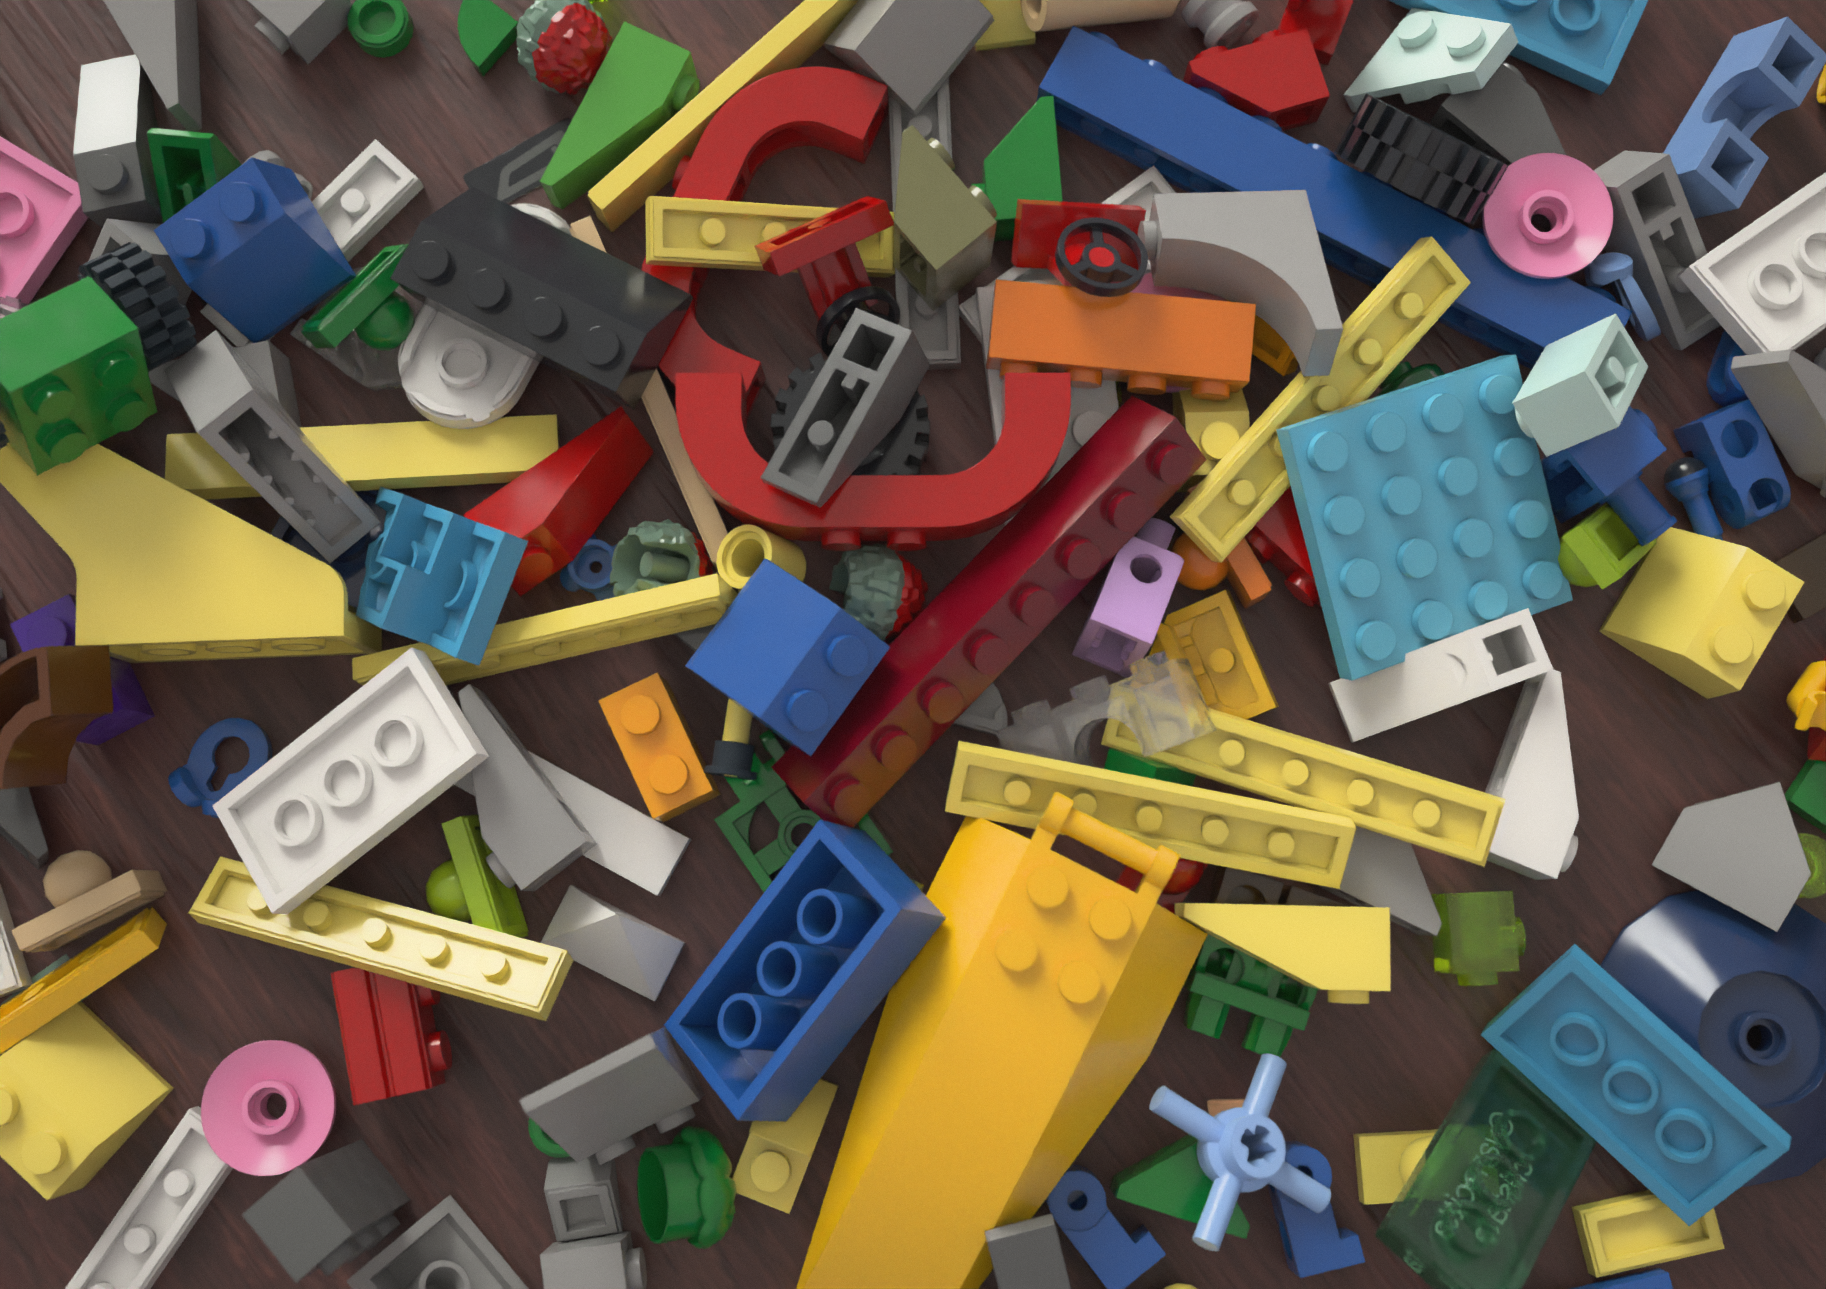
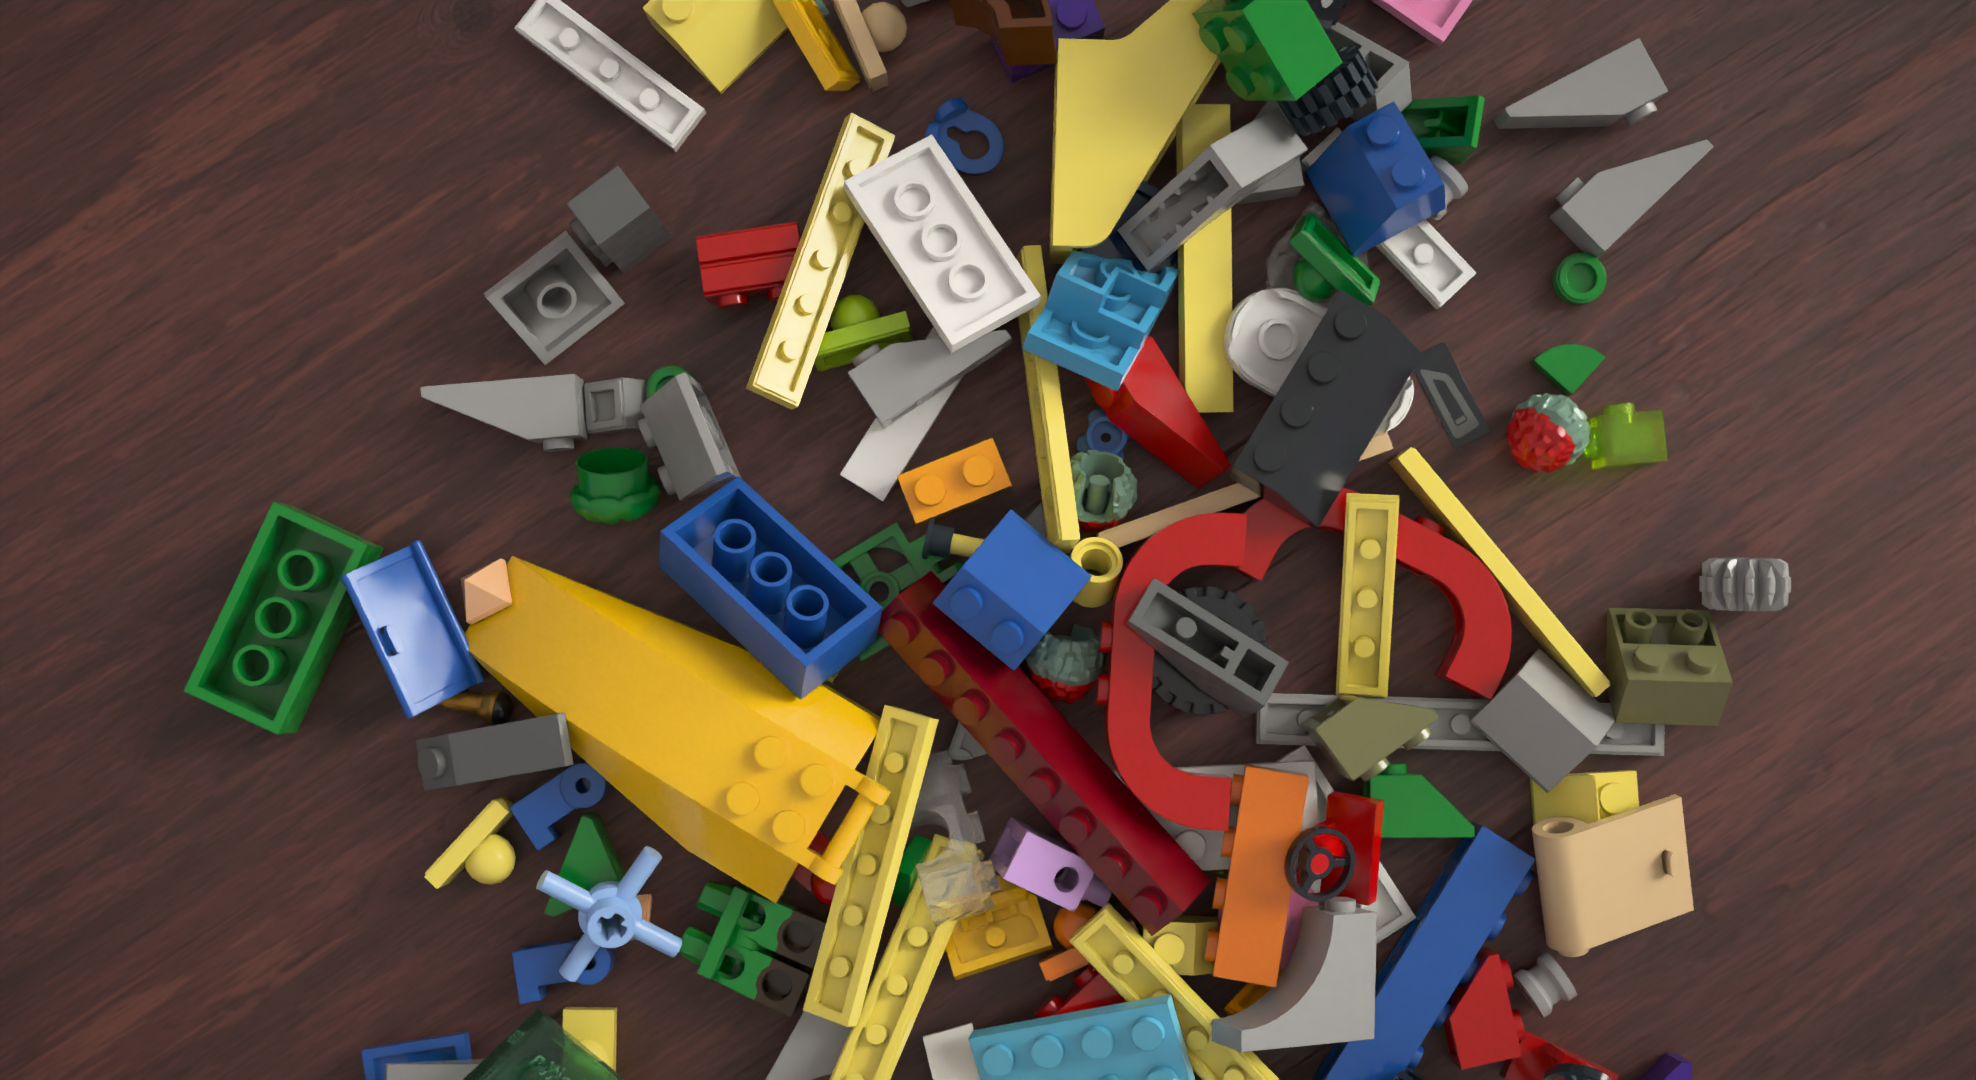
camera: 90 degrees right, 5 degrees up
(113, 143) = (1483, 64): dark grey slope -> none
(237, 1113) = (690, 146): bright pink dish -> none
(613, 942) = (807, 437): white slope -> none
(627, 102) = (1488, 480): bright green slope -> none
(781, 1151) = (635, 558): light yellow slope -> none
(831, 265) = (1334, 644): red piece -> none
(1315, 945) = (760, 989): light yellow slope -> none

